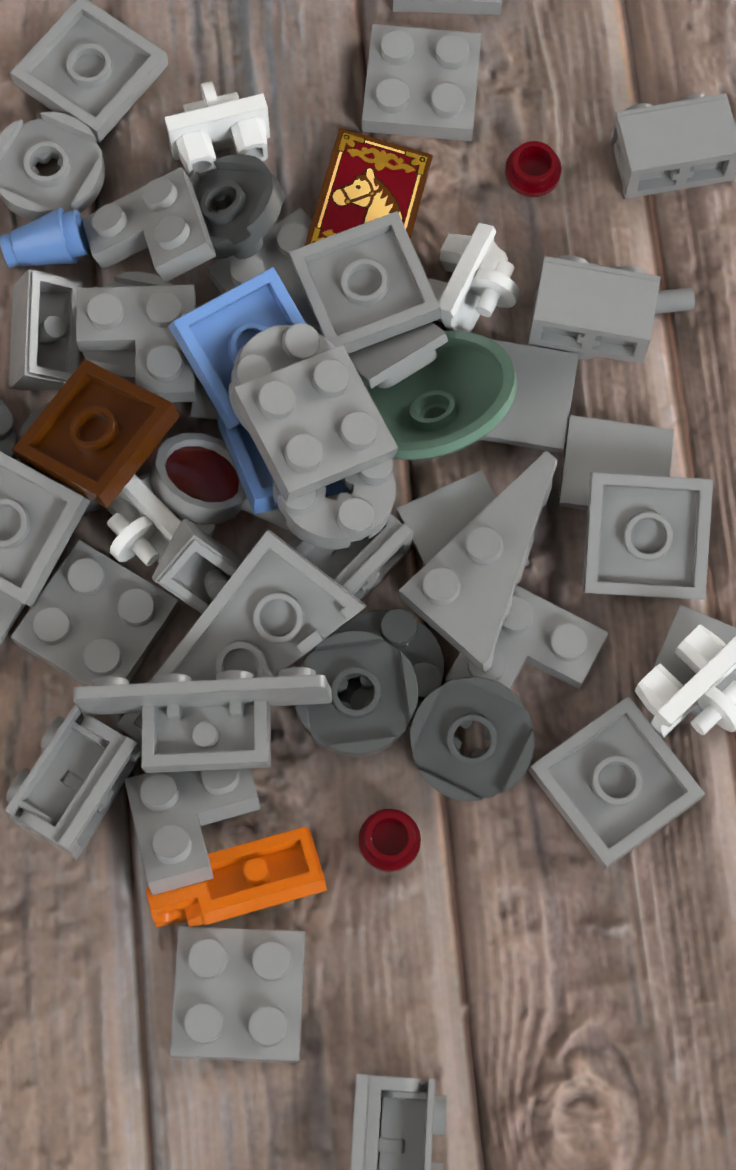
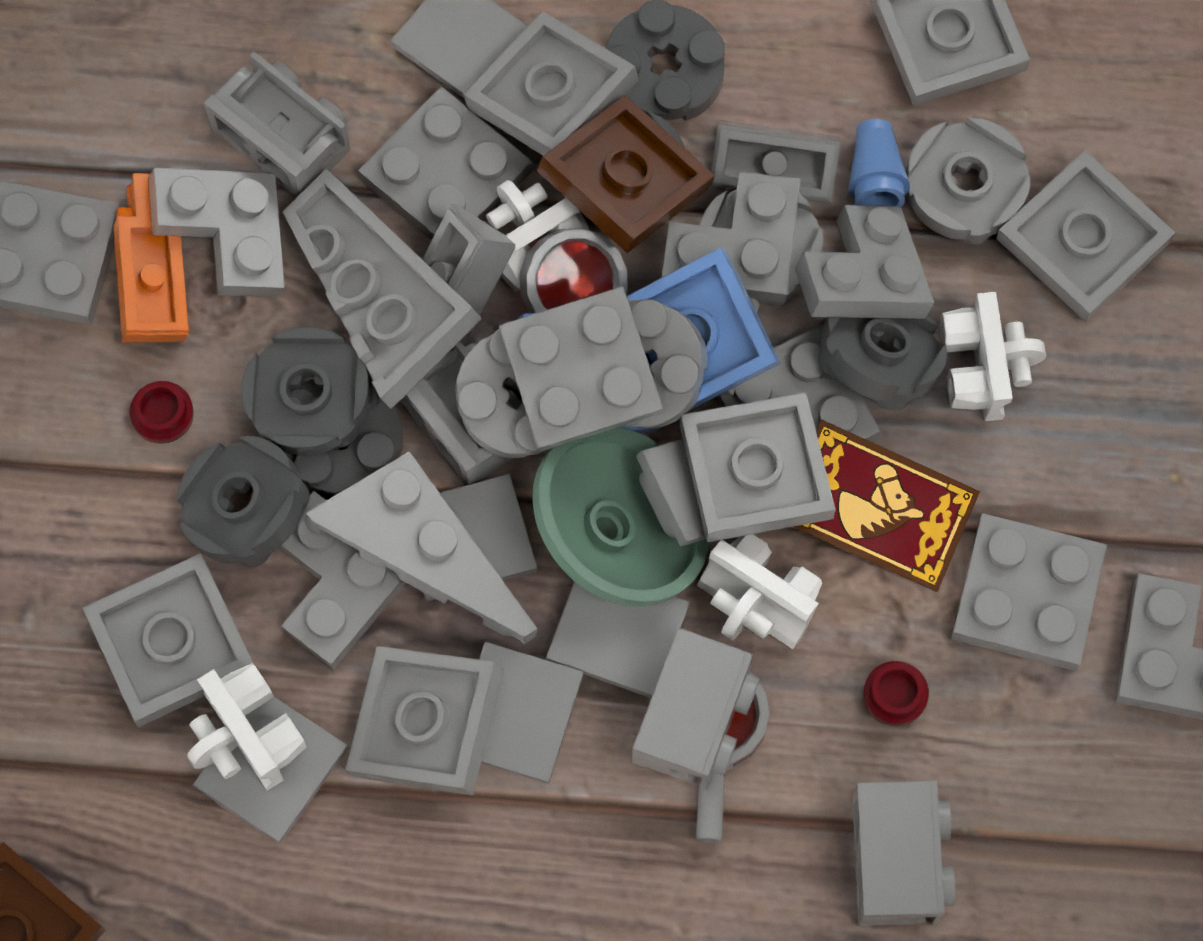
camera: 100 degrees right, 0 degrees up
(204, 721) = (294, 237): light grey bracket -> none

